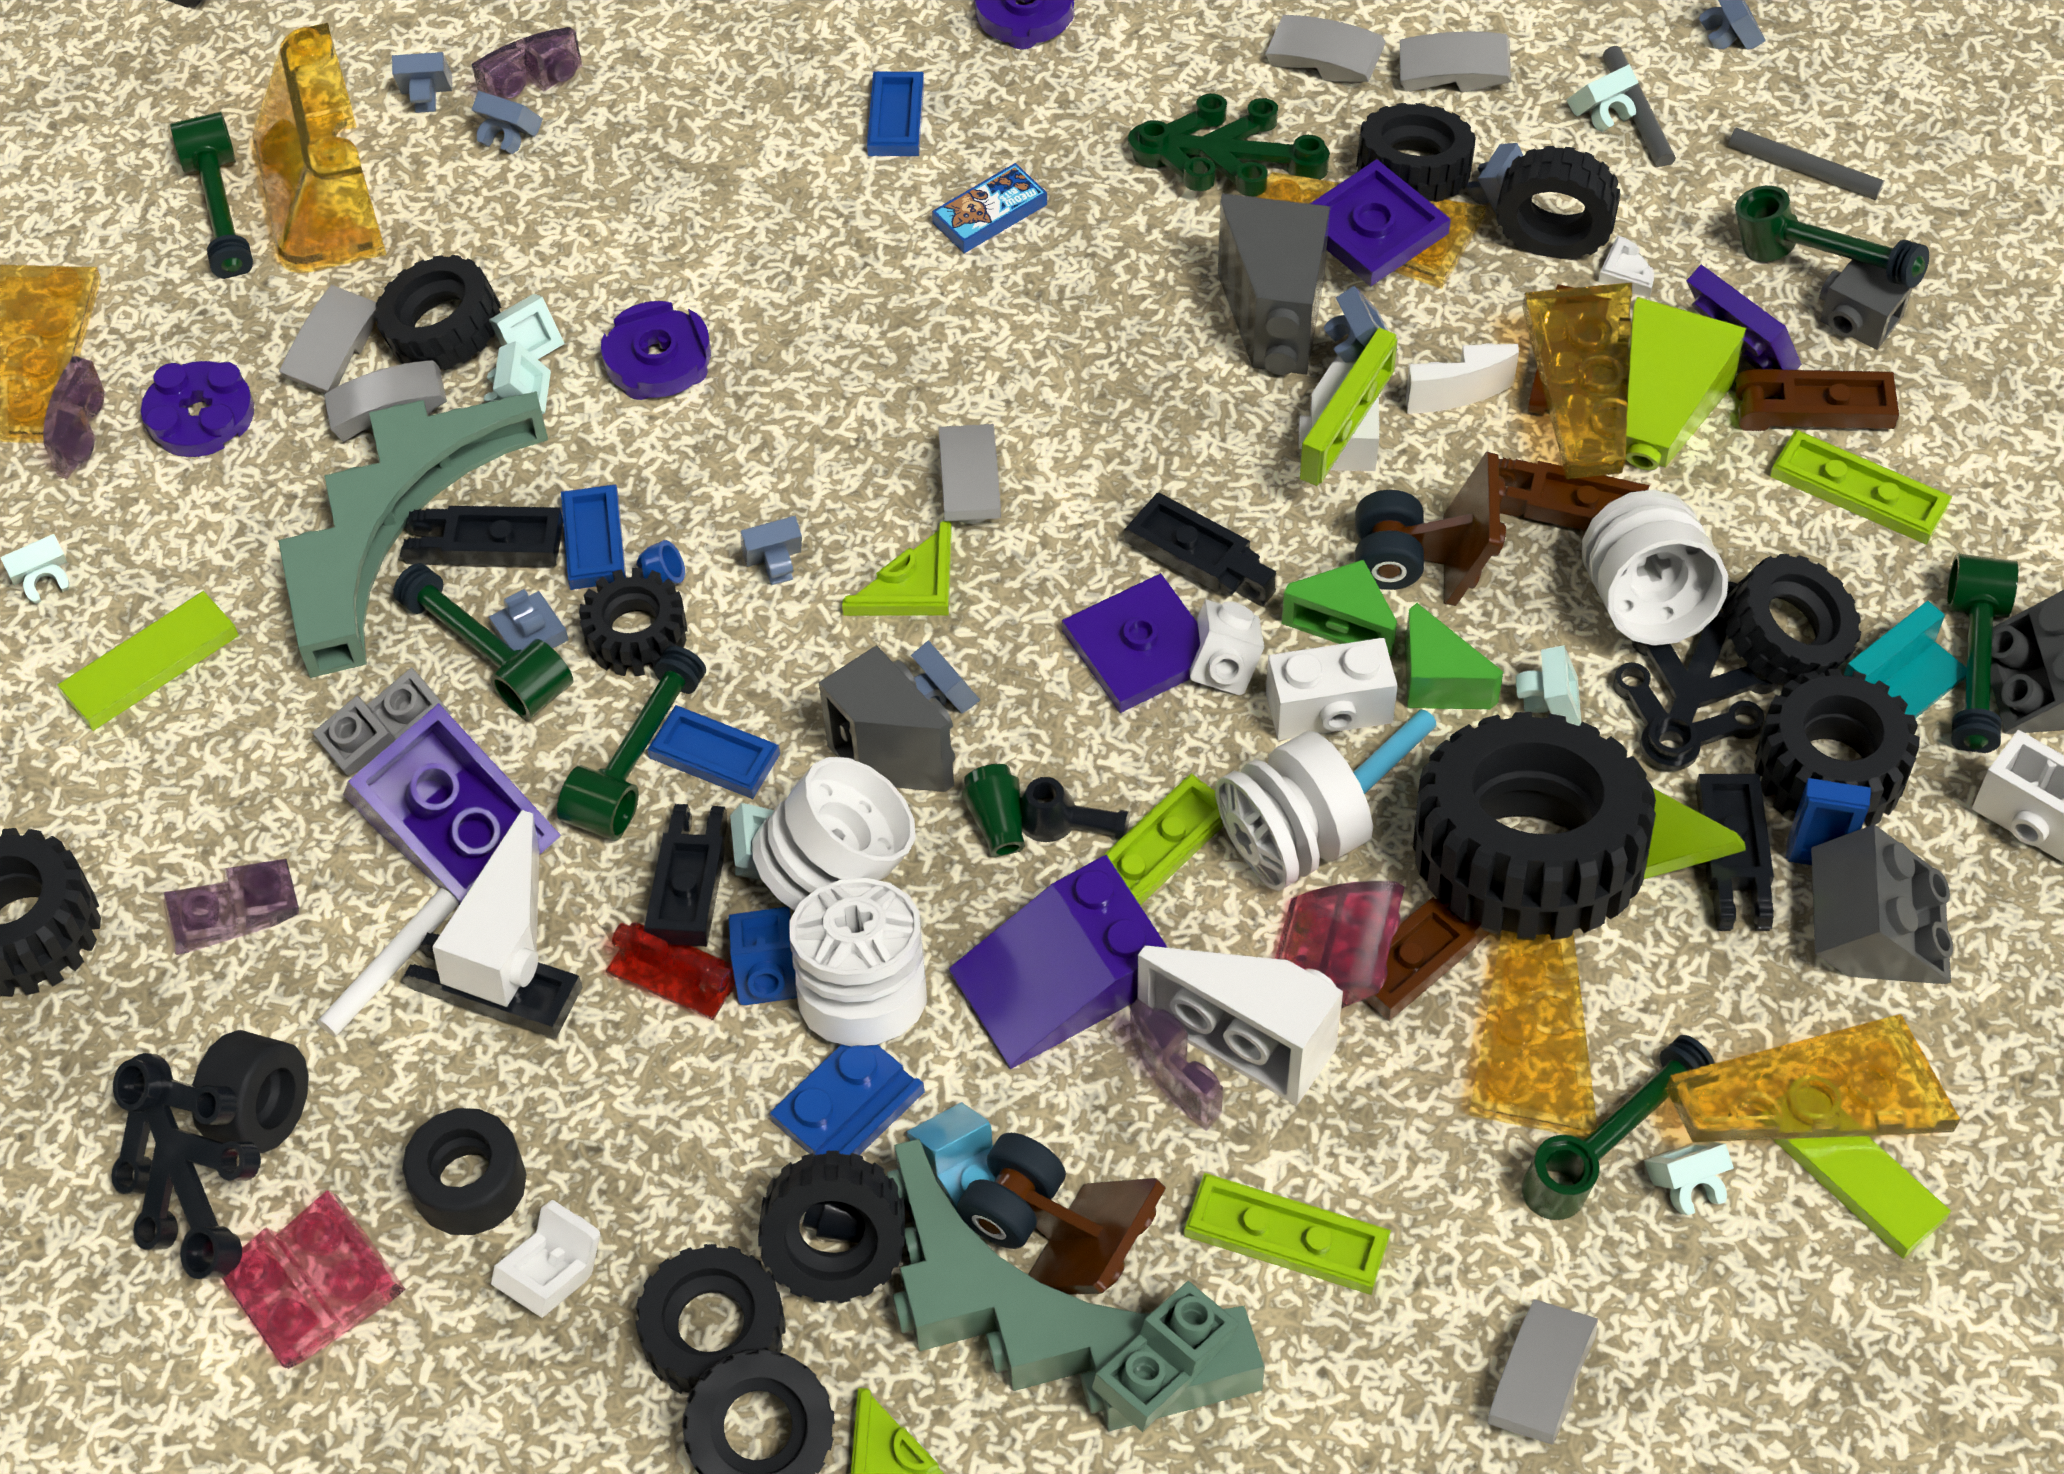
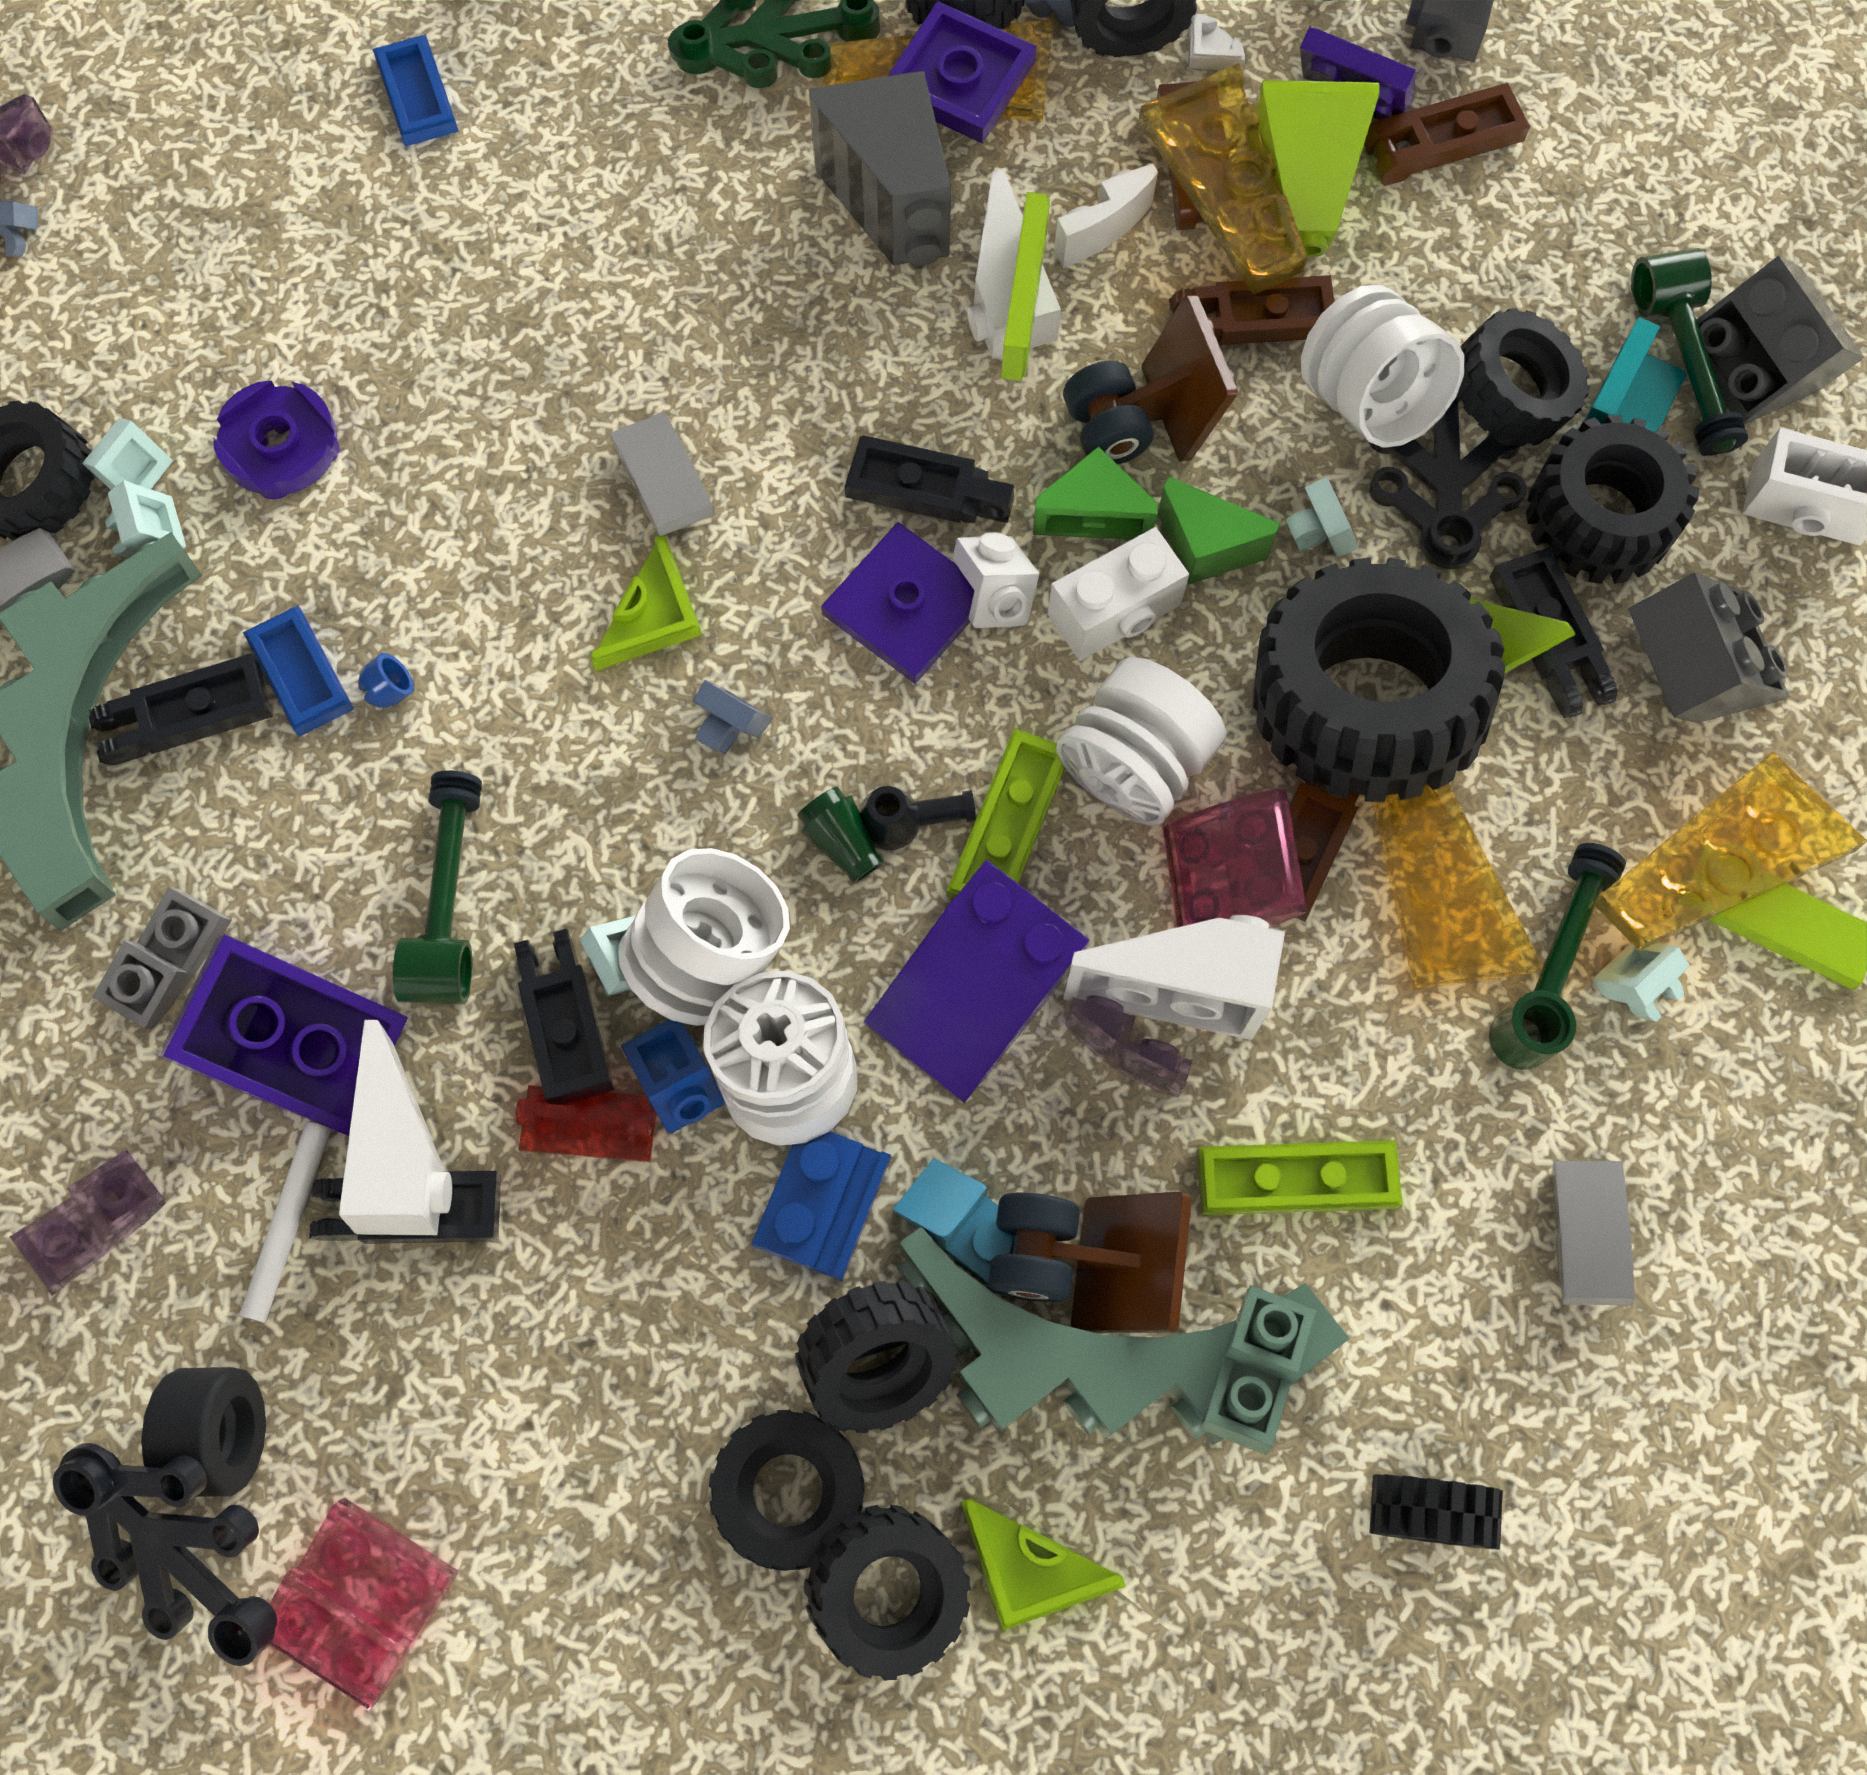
camera: 25 degrees left, 15 degrees up
(475, 1205) = (425, 1418): black tyre -> none
(525, 677) = (297, 856): dark green piece -> none
(526, 620) = (273, 796): sand blue tile -> none
(550, 1261) = (597, 1493): white bracket -> none
(627, 596) = (359, 730): black tyre -> none
(714, 751) = (526, 868): blue tile -> none
(773, 545) = (494, 622): sand blue tile -> none
(887, 723) = (700, 789): dark grey slope -> none
(989, 208) = (557, 168): tile -> none
(1359, 321) = (999, 189): sand blue tile -> none
(1394, 749) = (1199, 632): medium azure bar -> none
(1824, 814) = (1638, 576): blue tile -> none
(1861, 486) = (1517, 212): lime tile -> none

